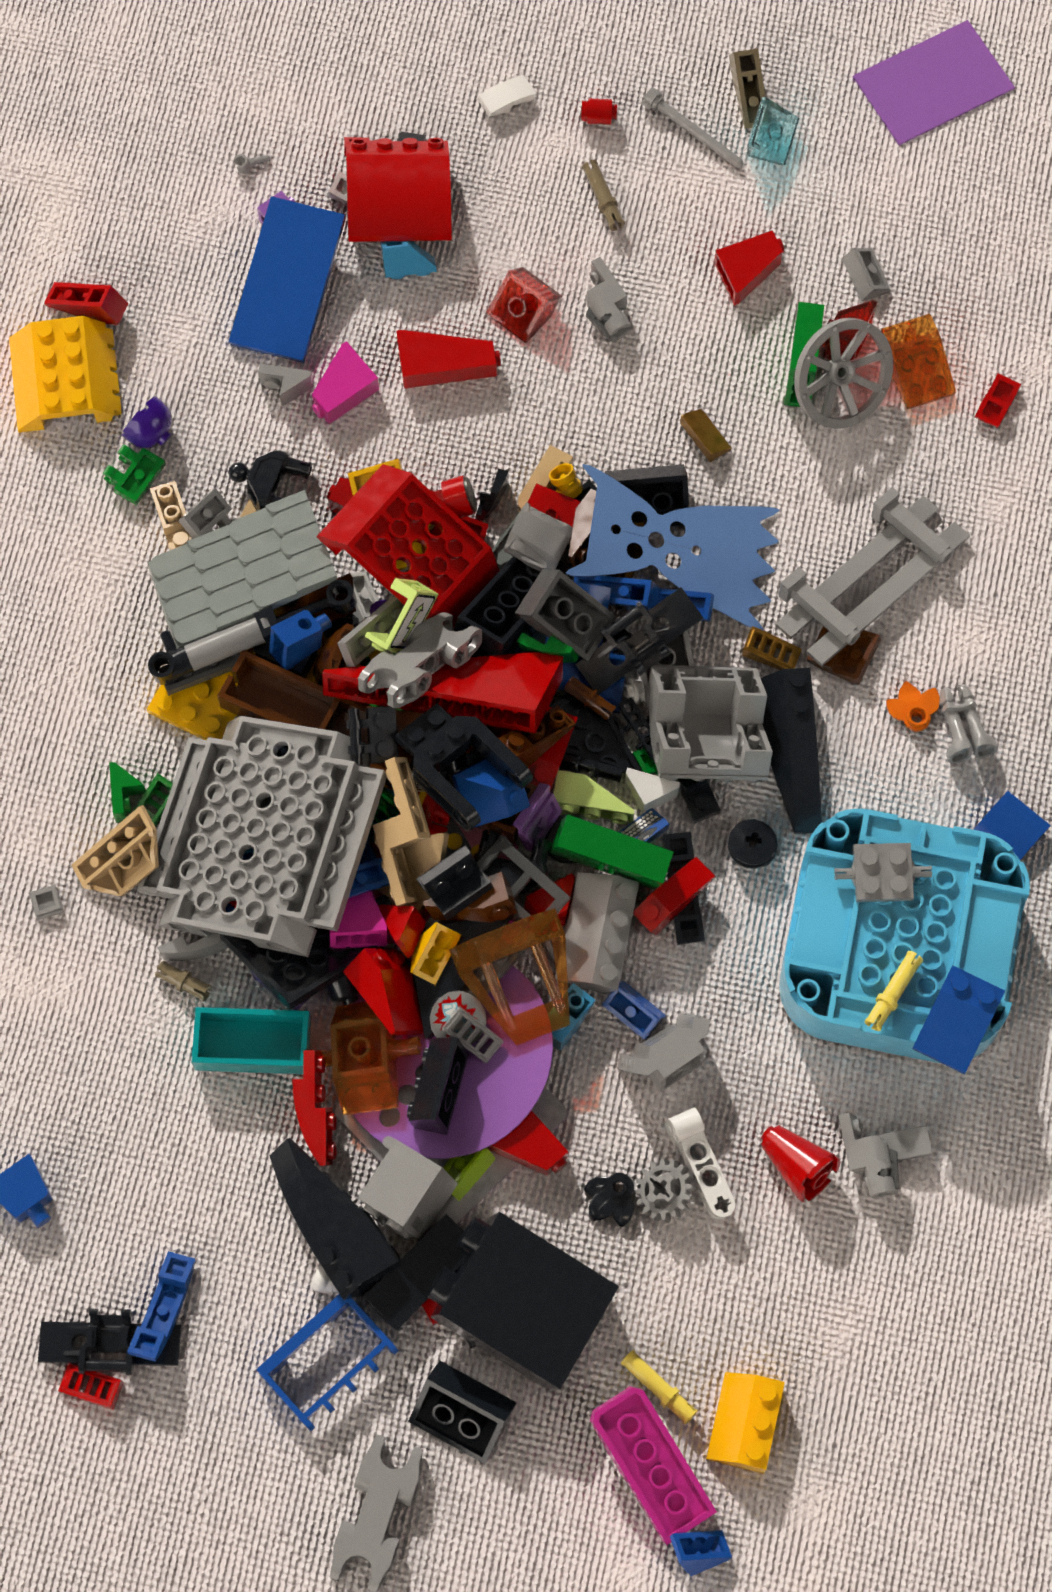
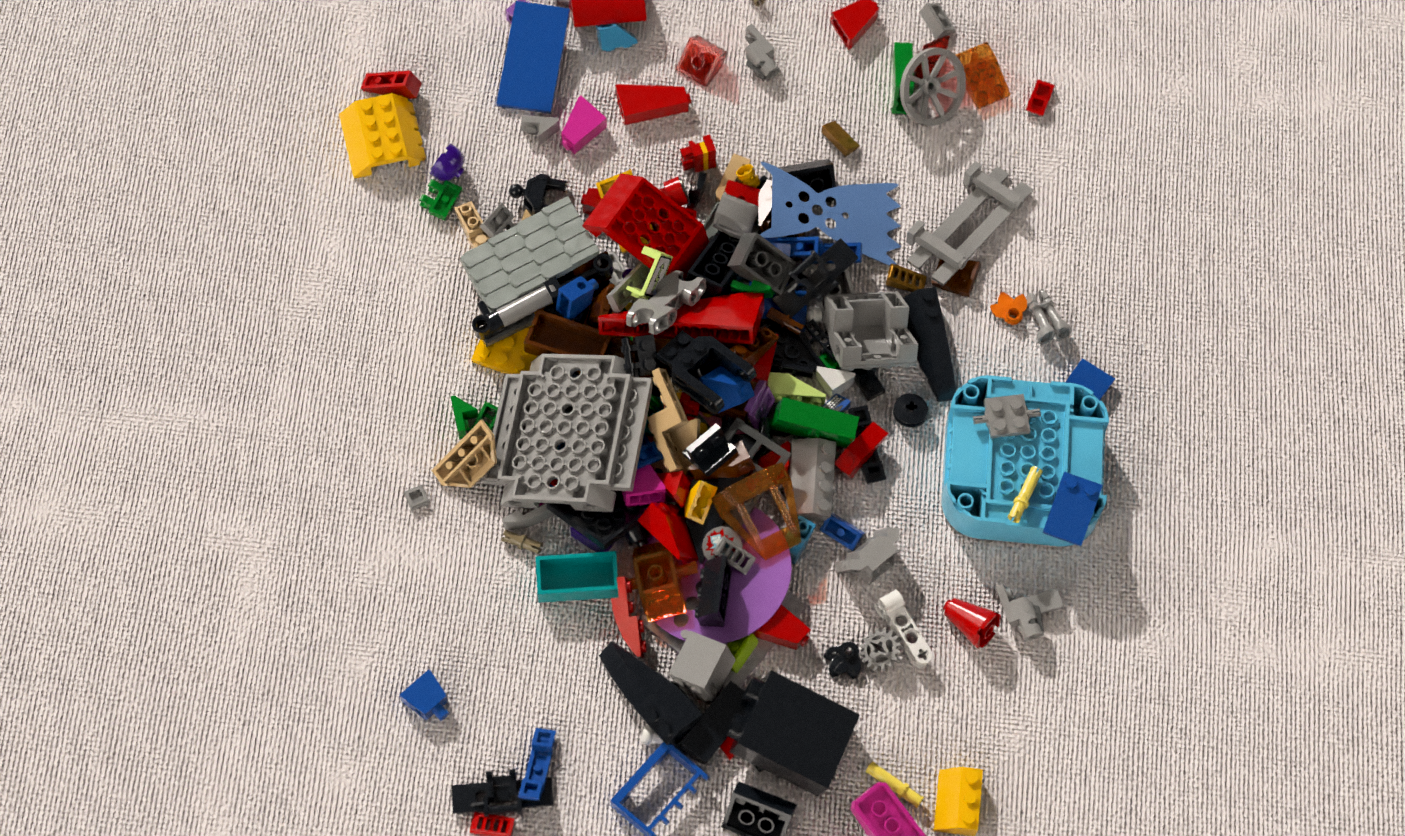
camera: 10 degrees left, 5 degrees down
(501, 444) = (699, 156): none -> red hips

